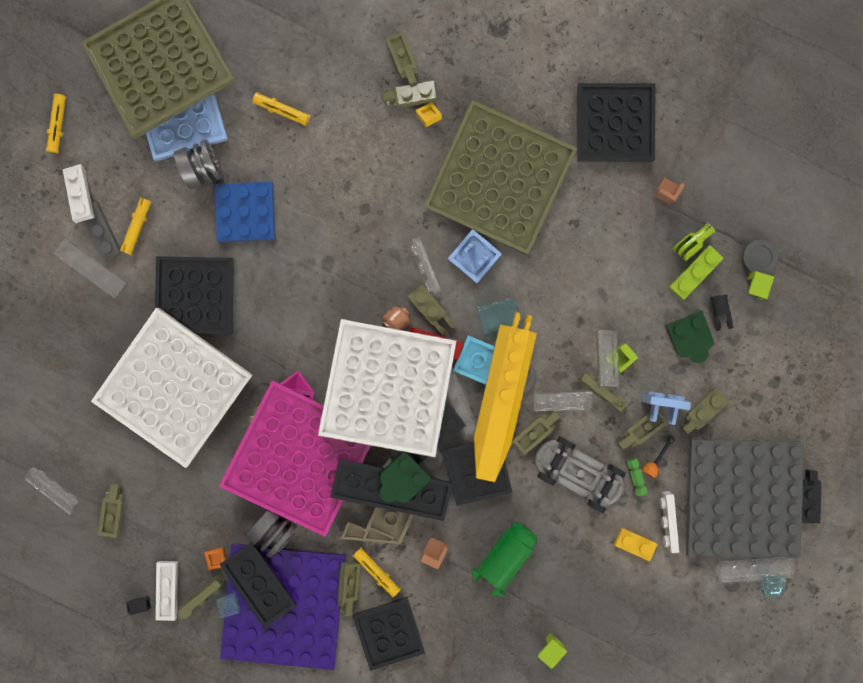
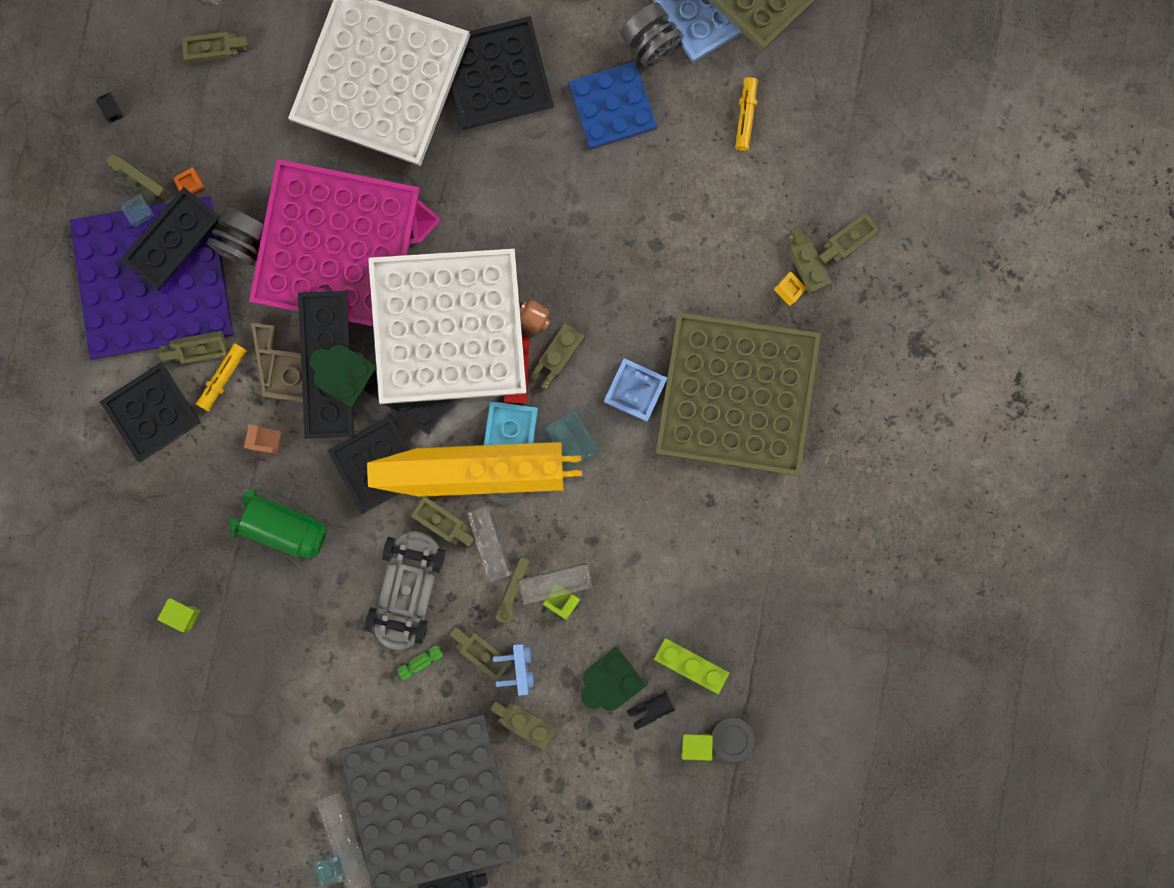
camera: 75 degrees right, 5 degrees down
(166, 590) = (135, 135): white plate -> none
(425, 266) = (607, 334): clear plate -> none
(616, 122) = (846, 516): black plate -> none
(635, 544) = (337, 684): yellow plate -> none
(651, 468) = (435, 678): hinge -> none
(668, 191) = (781, 602): nougat panel -> none
(669, 522) = (375, 716): white plate -> none
(693, 242) = (727, 651): lime arm -> none

